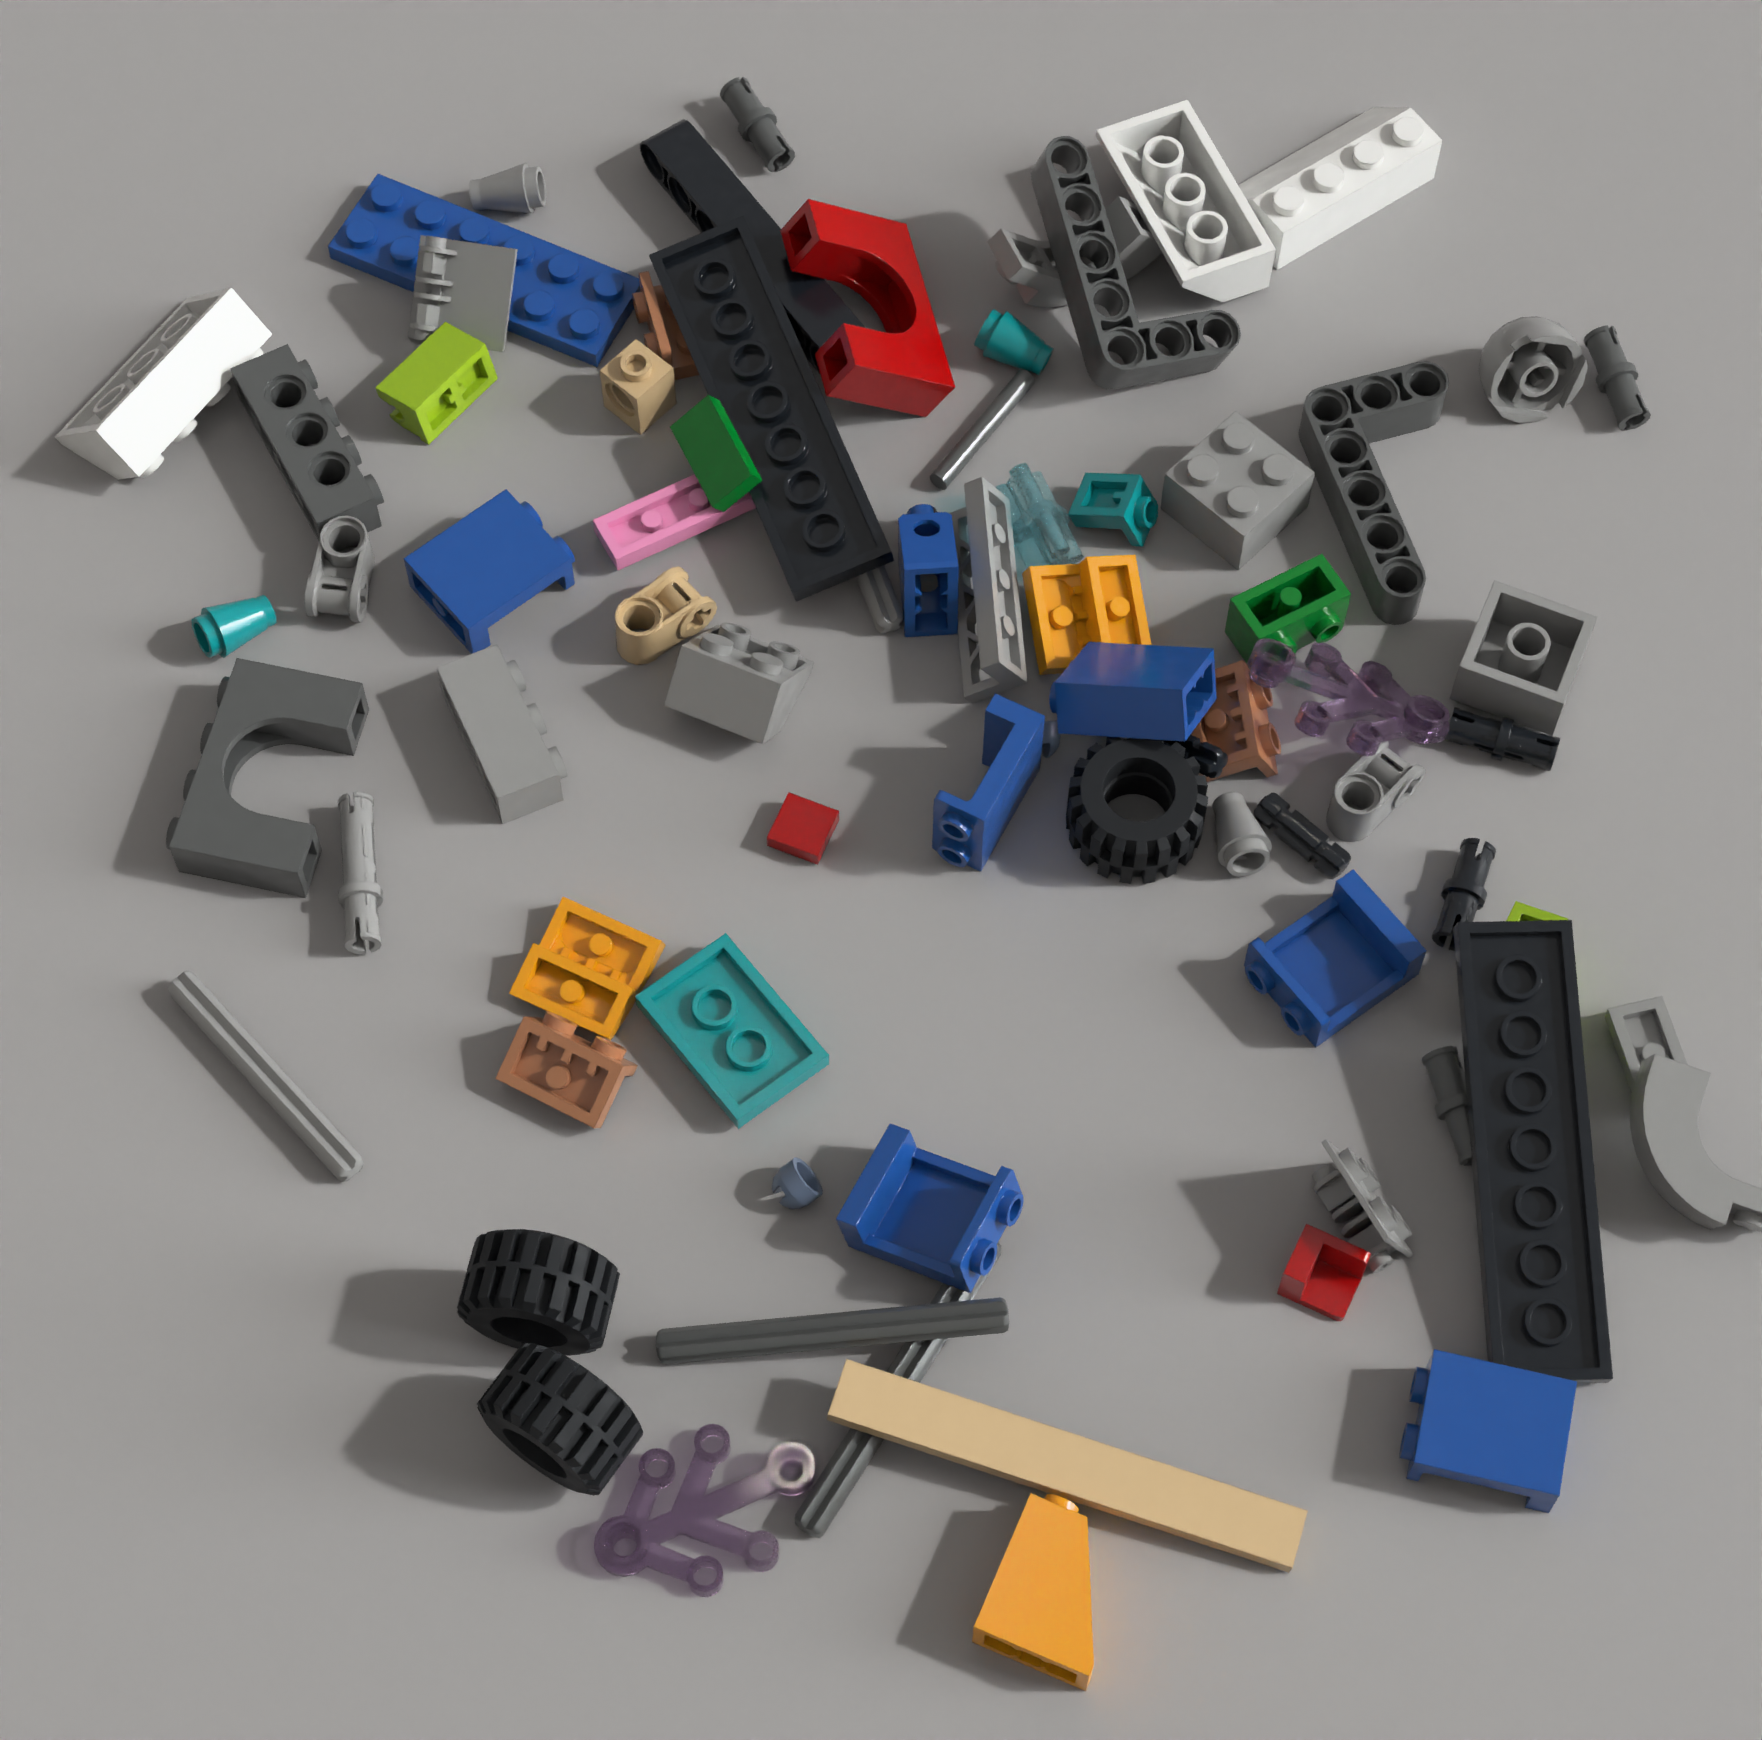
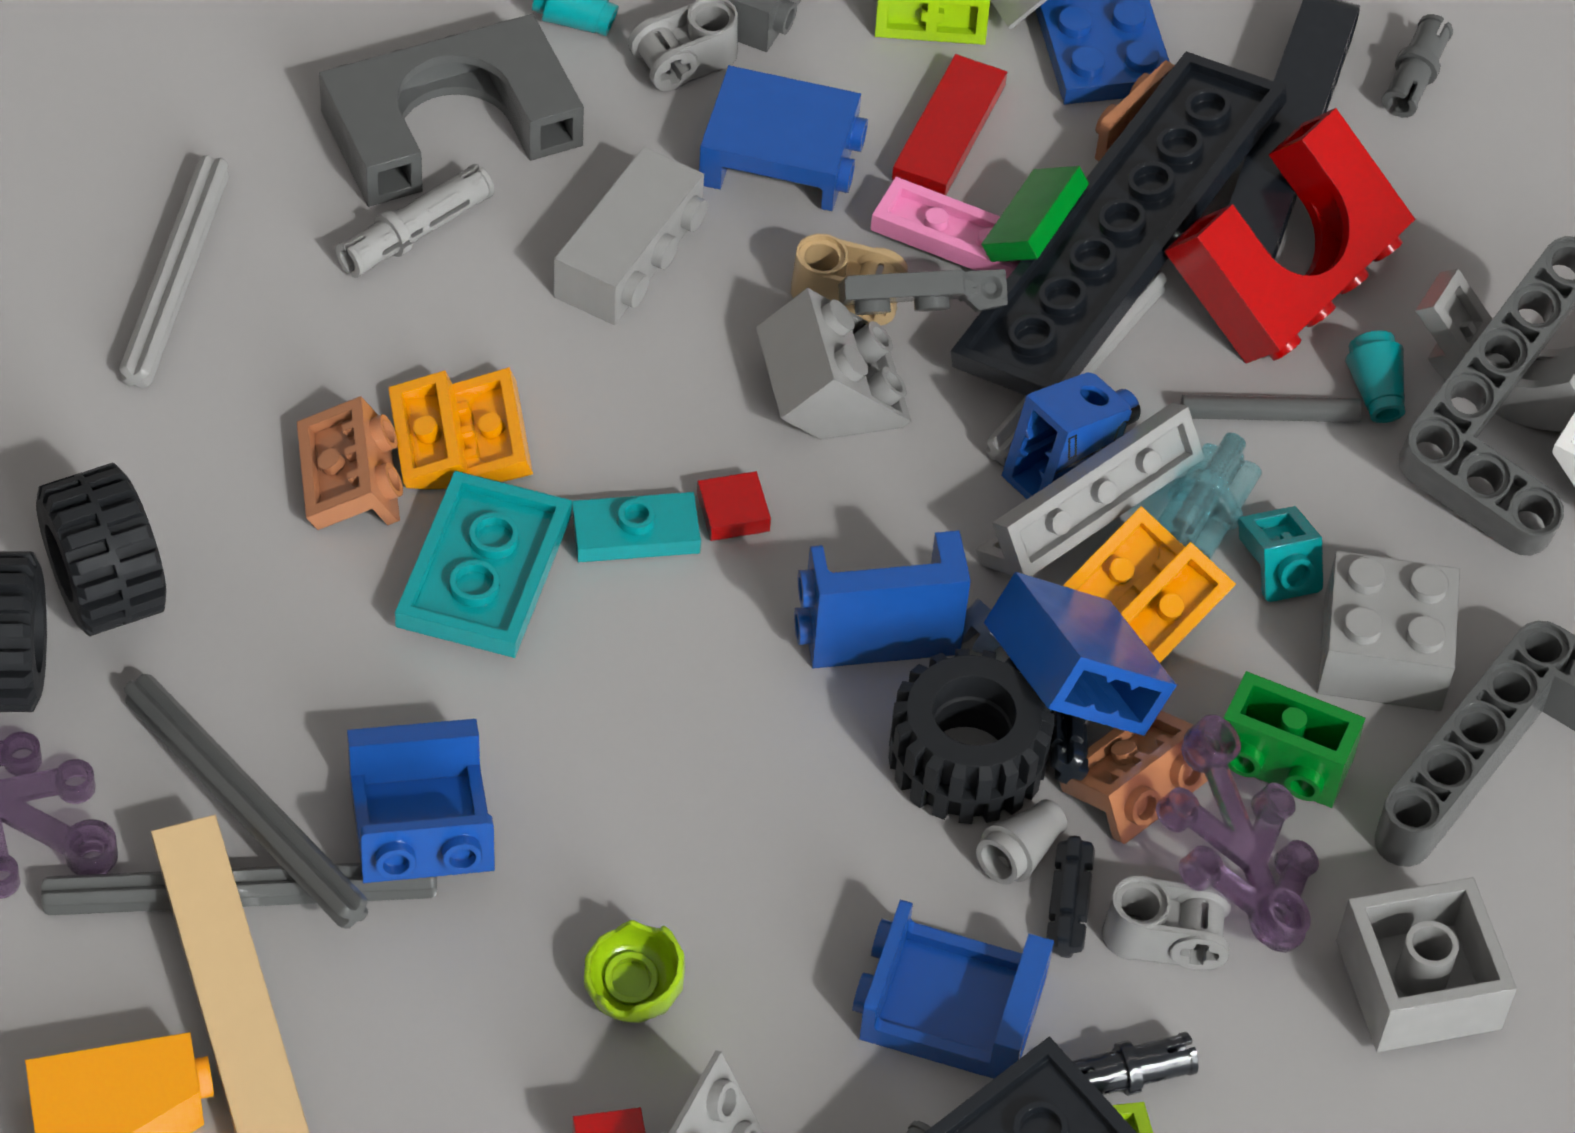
camera: 50 degrees right, 10 degrees down
(562, 453) = (950, 124): none -> red tile
(638, 386) = (1059, 128): tan brick -> none
(733, 573) = (928, 290): none -> dark grey hinge
(772, 905) = (636, 527): none -> teal plate
(797, 1183) = (374, 687): sand blue hinge -> none
(1178, 1155) = (634, 972): none -> lime hair
(1502, 739) = (1330, 1008): black pin -> none

